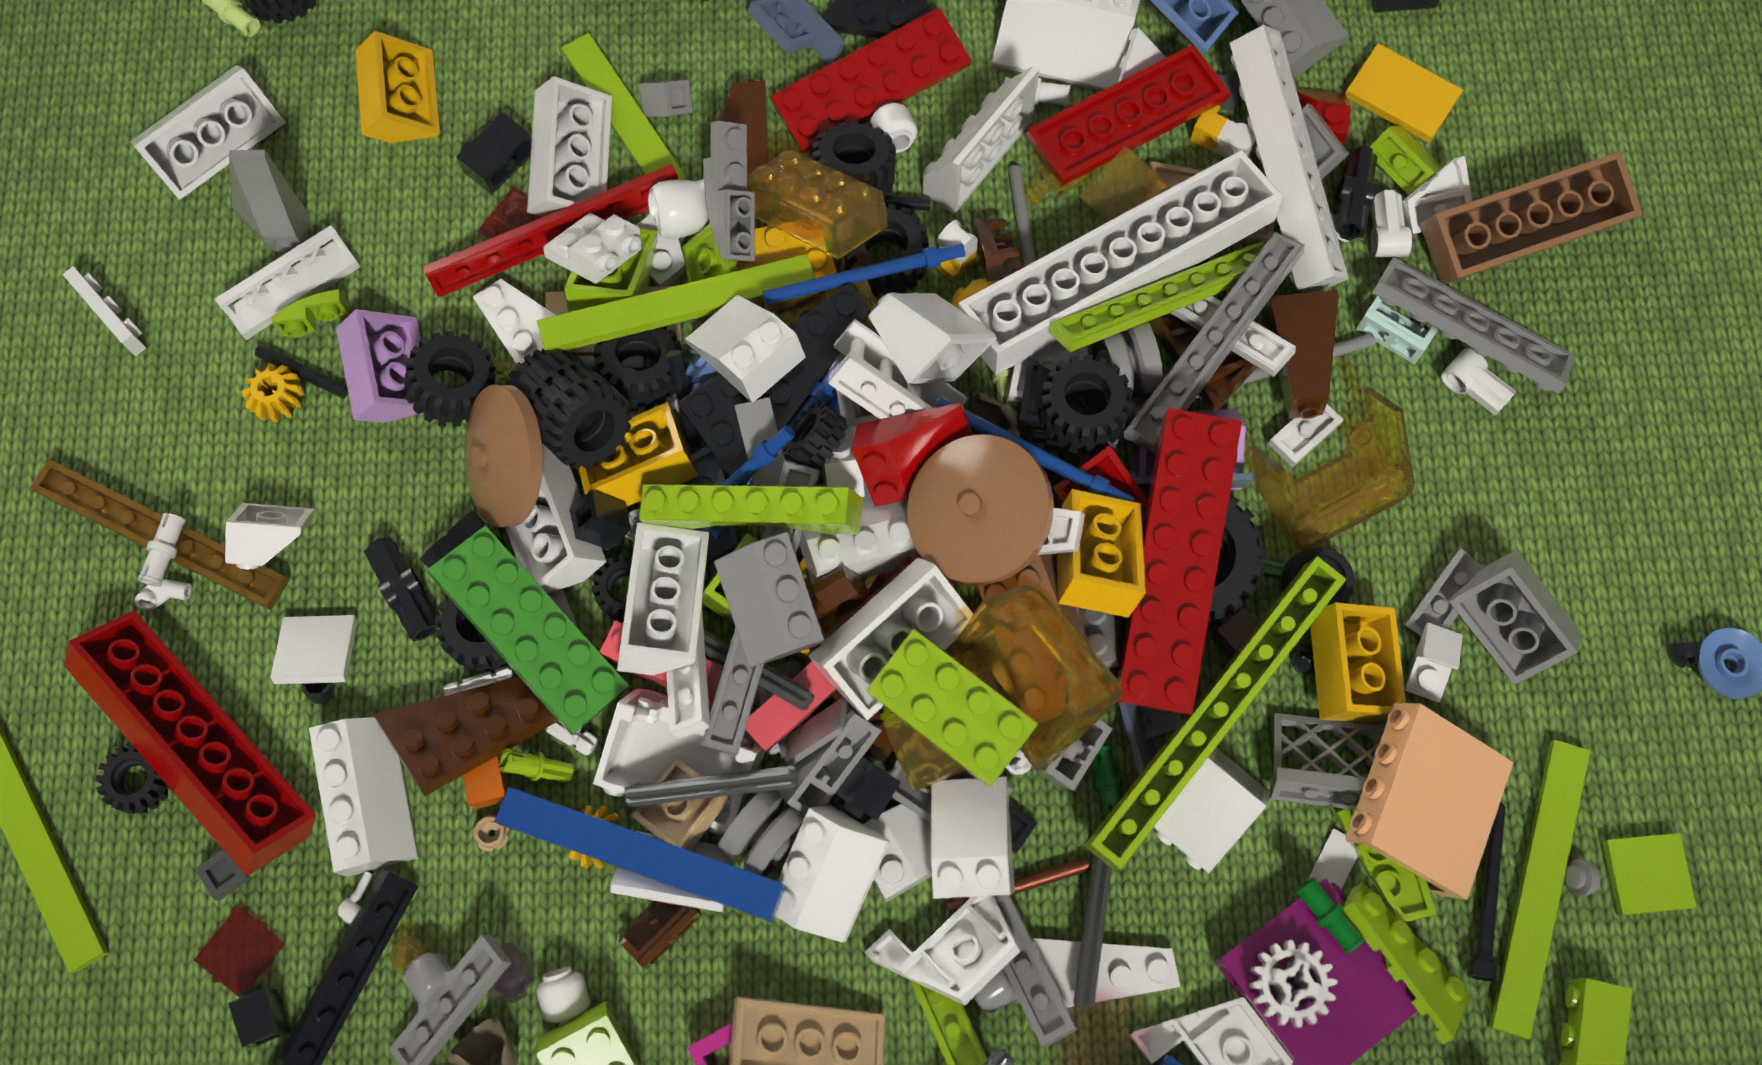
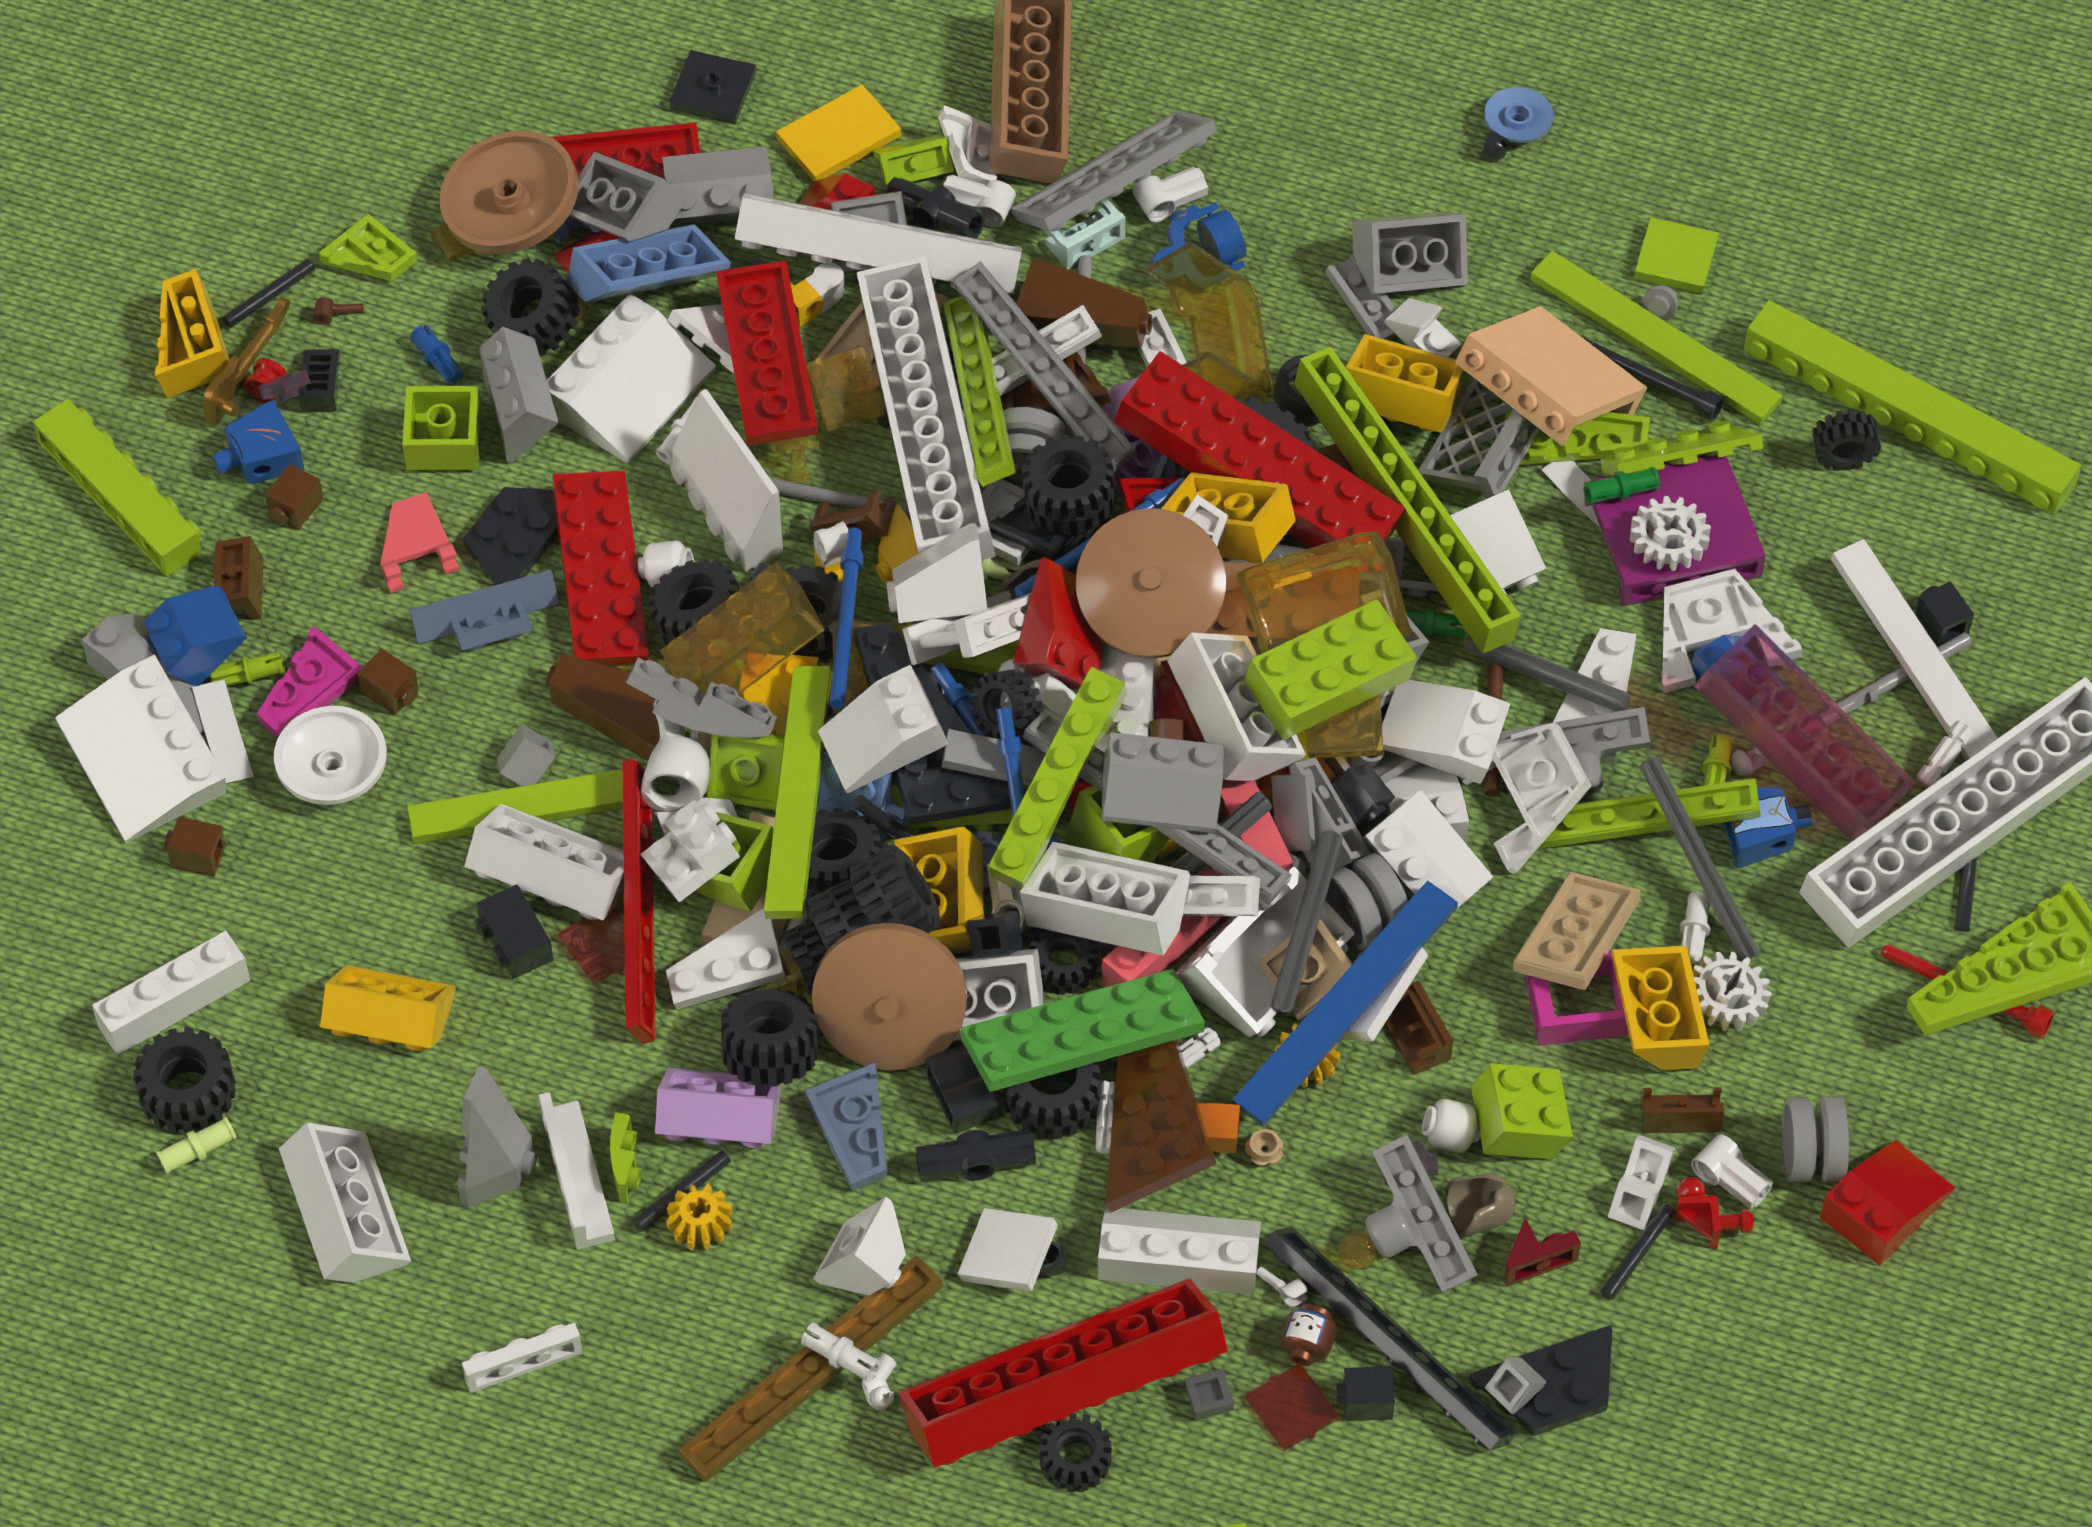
camera: 70 degrees left, 15 degrees down
(301, 942) = (1308, 1335): none -> copper head
(401, 478) = (852, 1124): none -> sand blue wing
(535, 766) = (1216, 1080): lime axle -> none
(1446, 438) = (1216, 231): none -> blue piece

